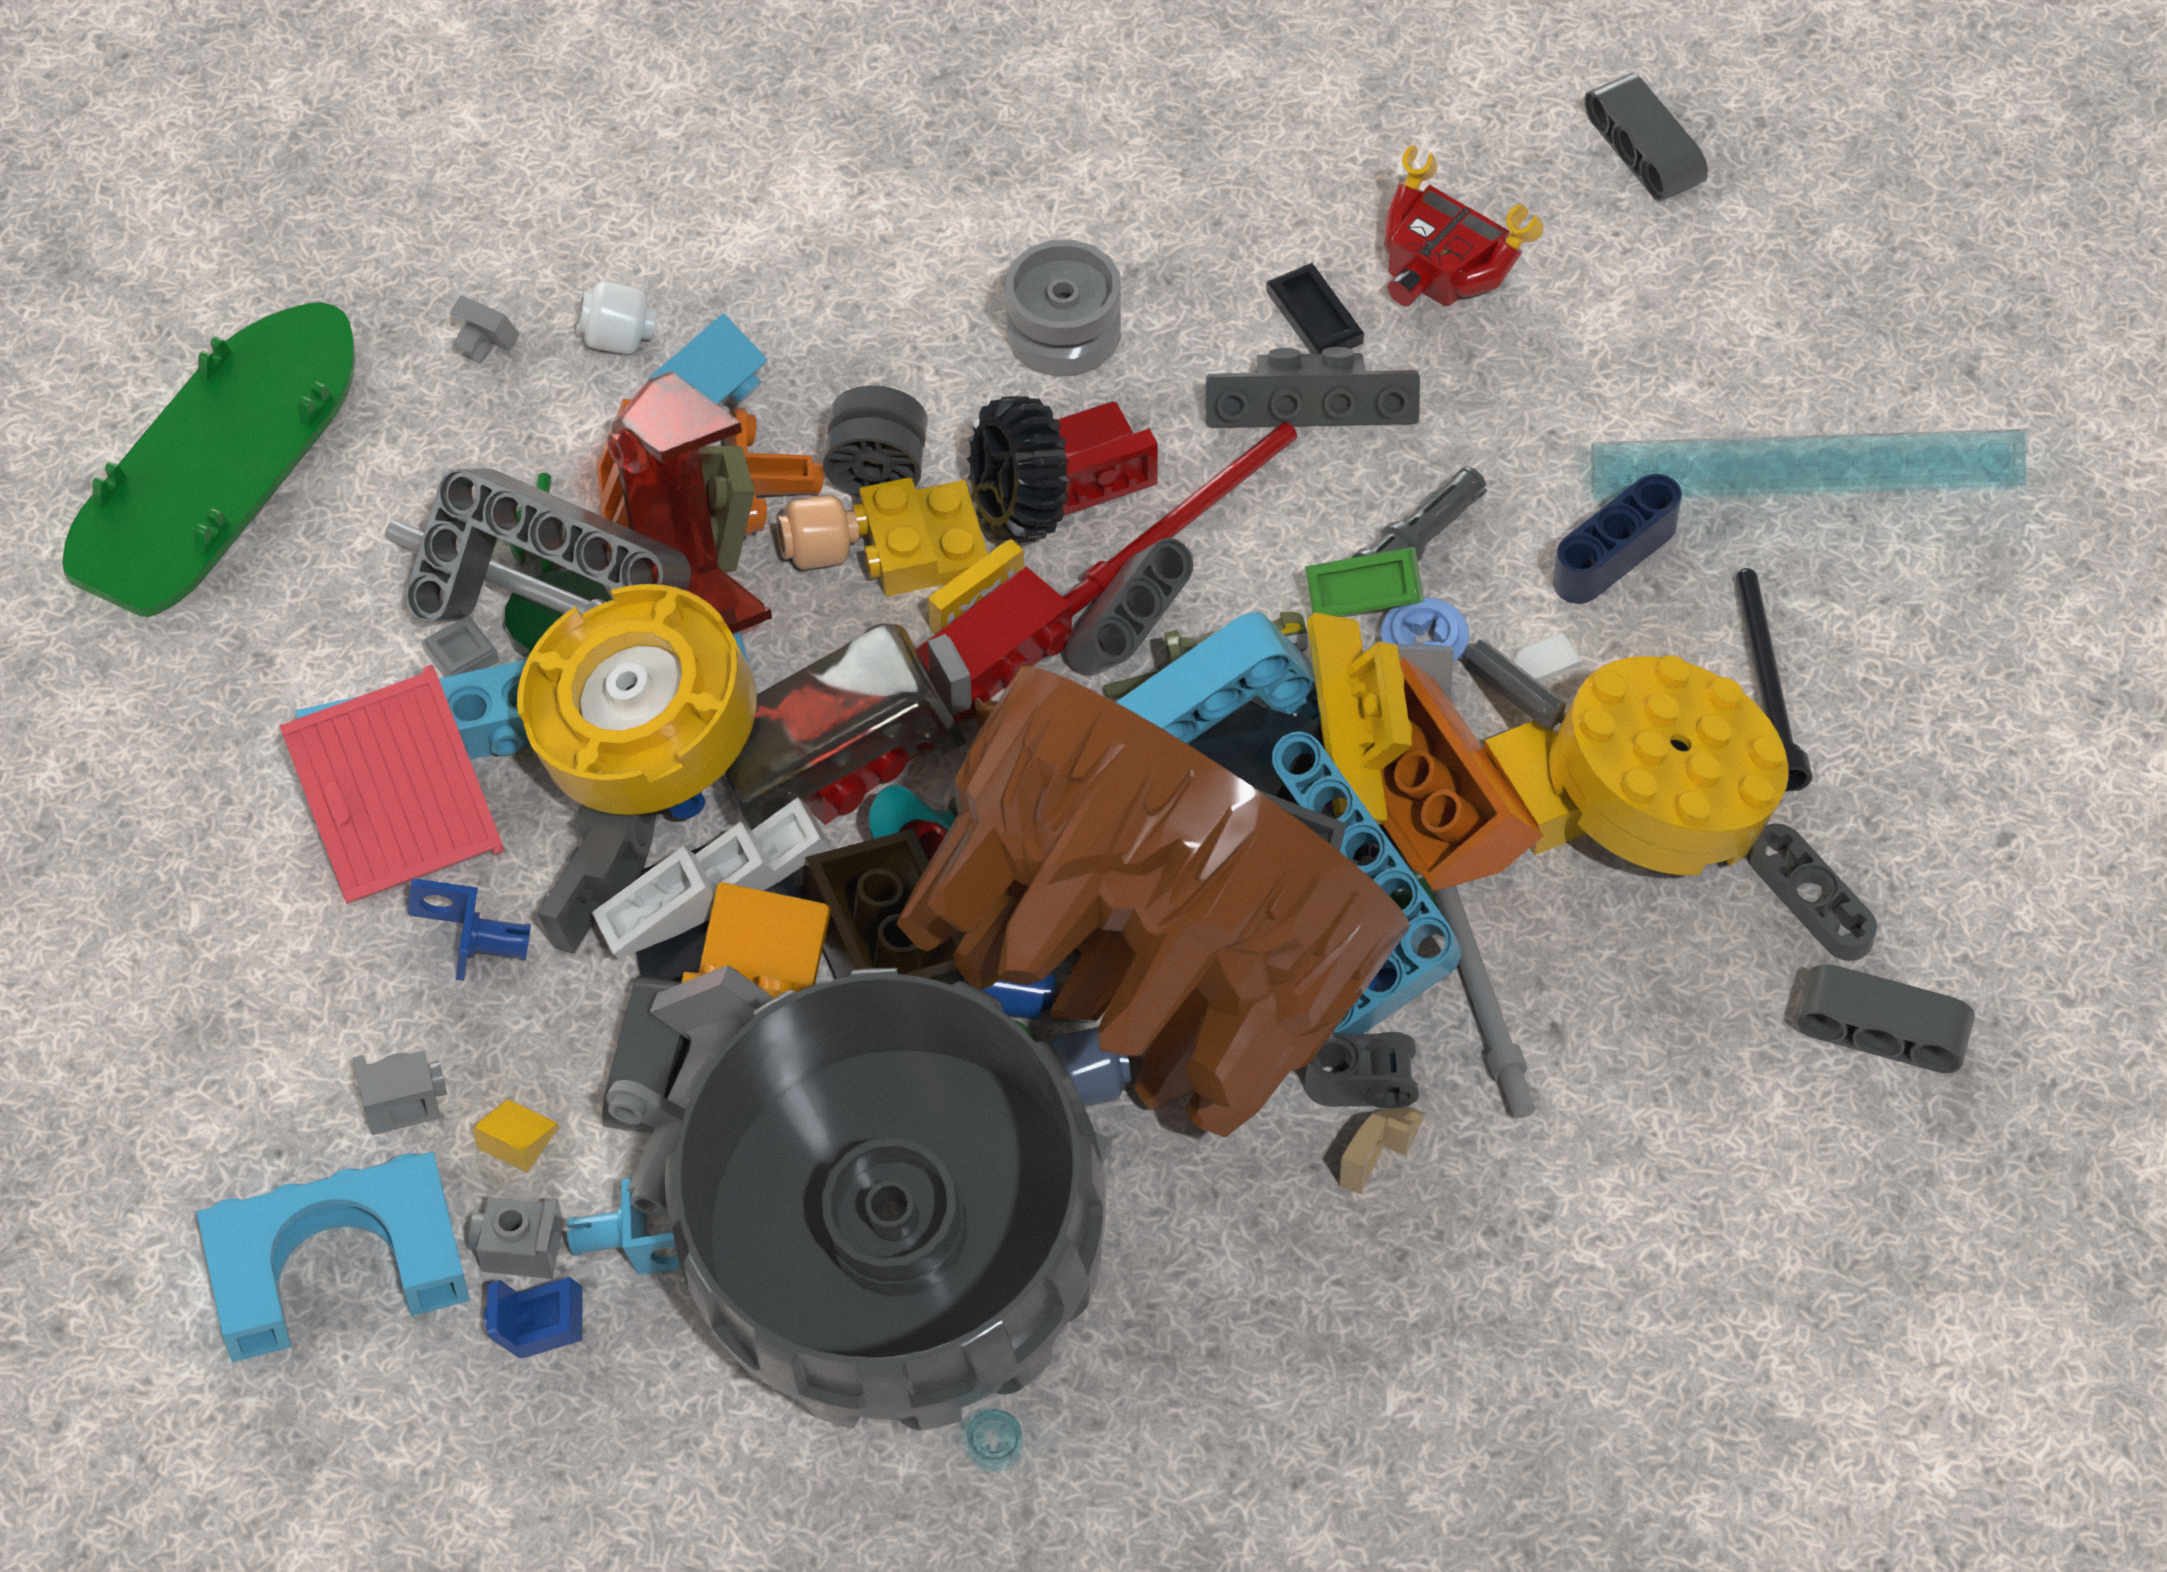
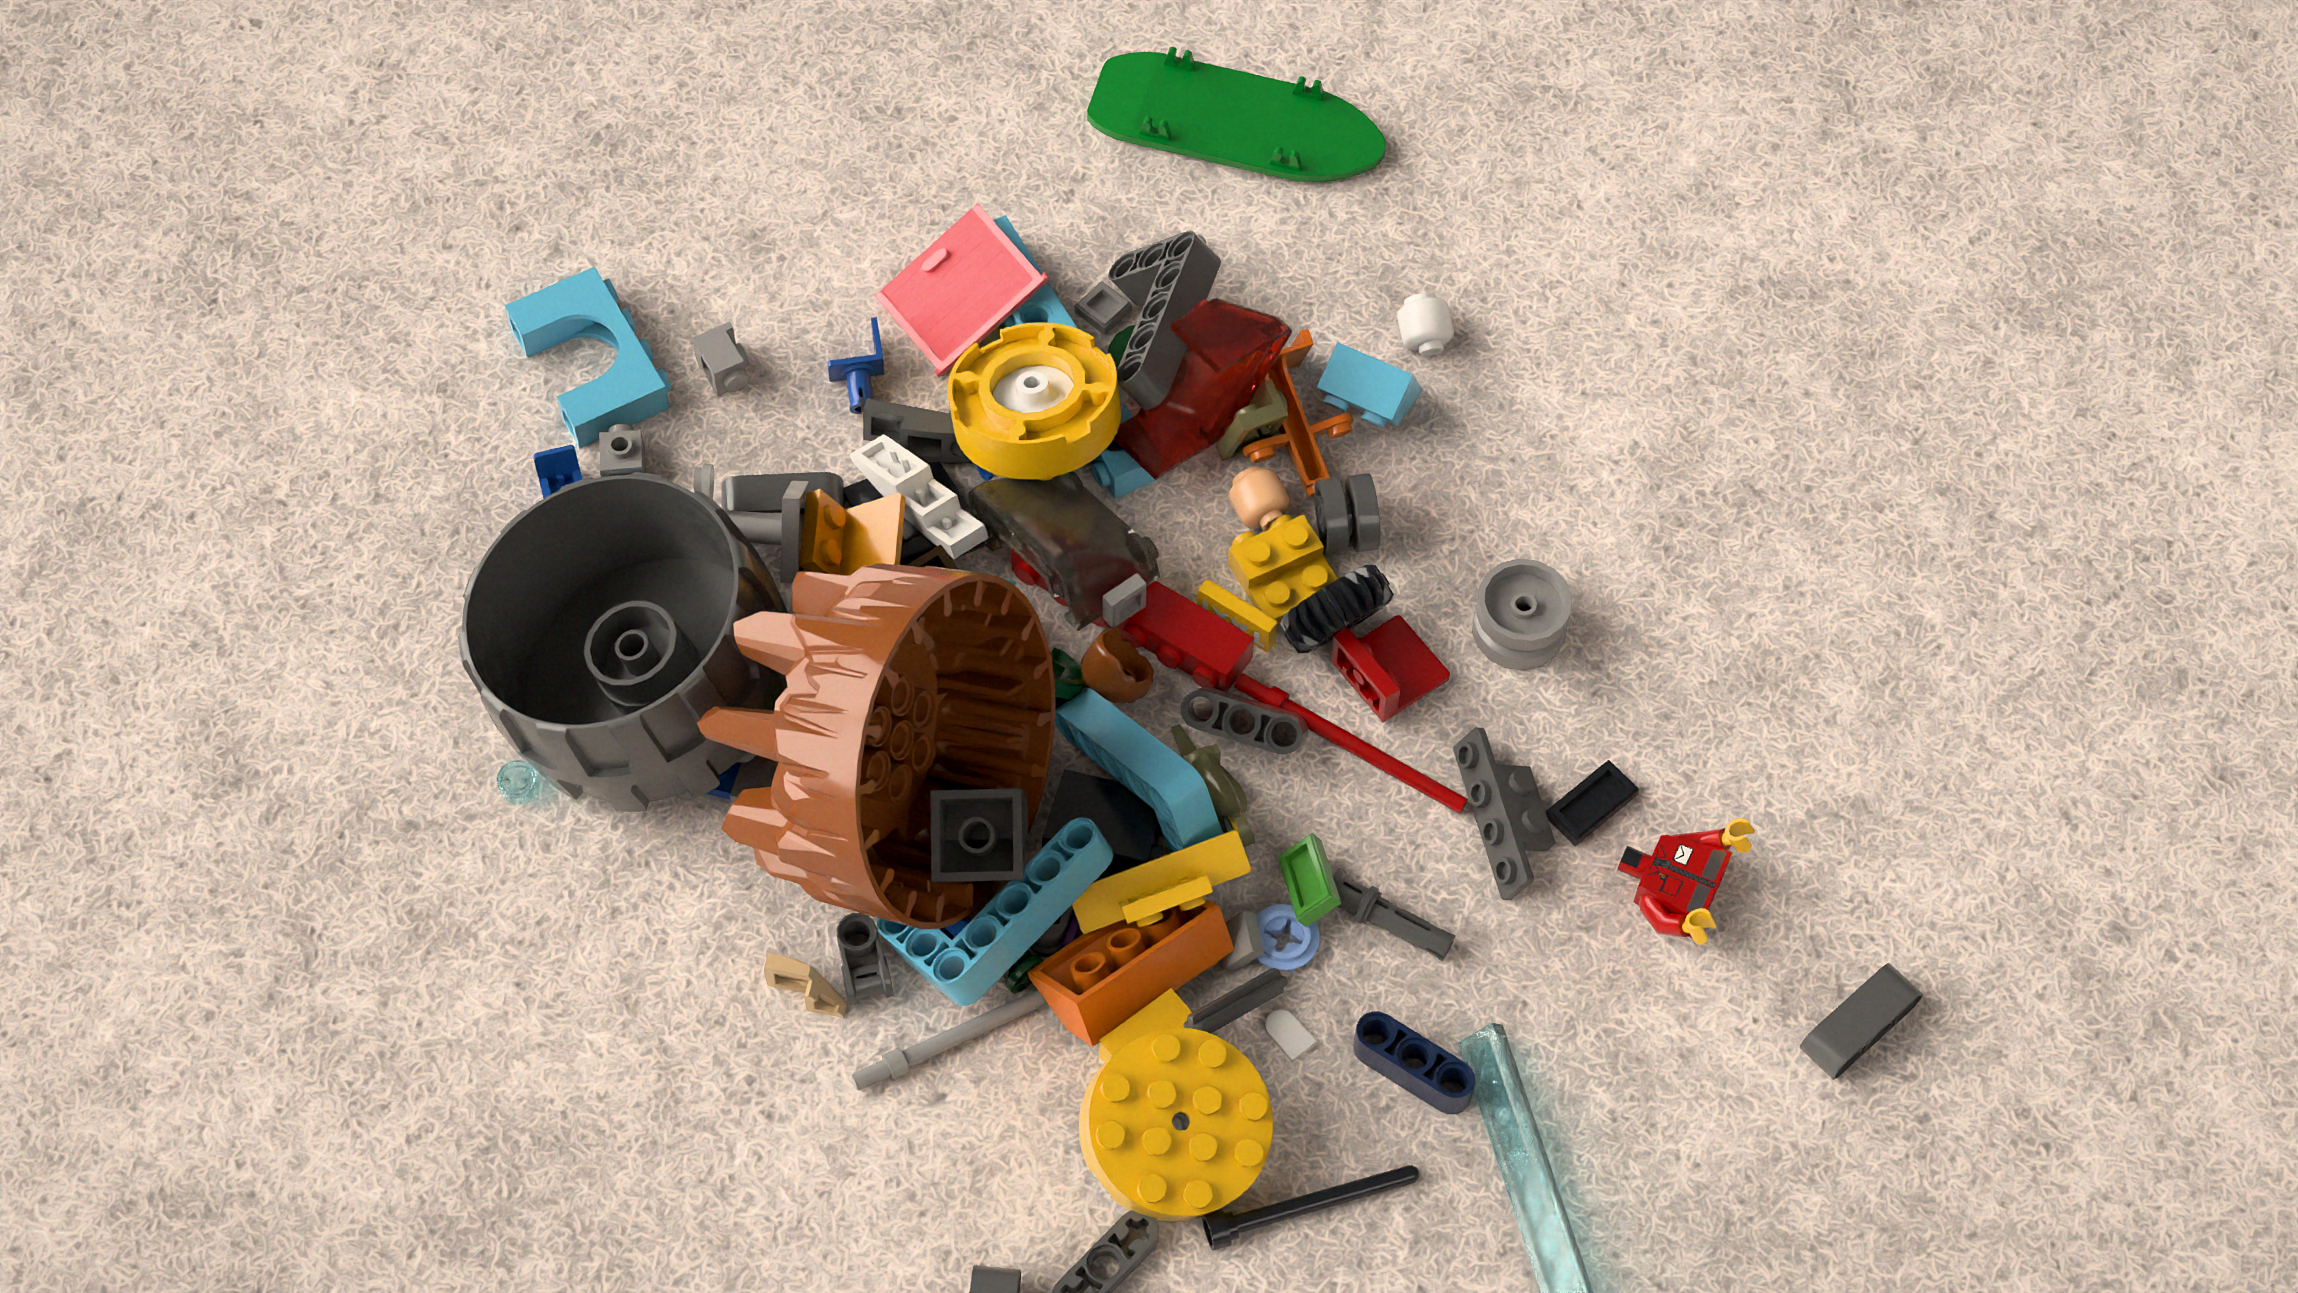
camera: 75 degrees right, 5 degrees up
(481, 328) = (1390, 244): light grey tile -> none
(514, 1134) = (707, 438): yellow slope -> none

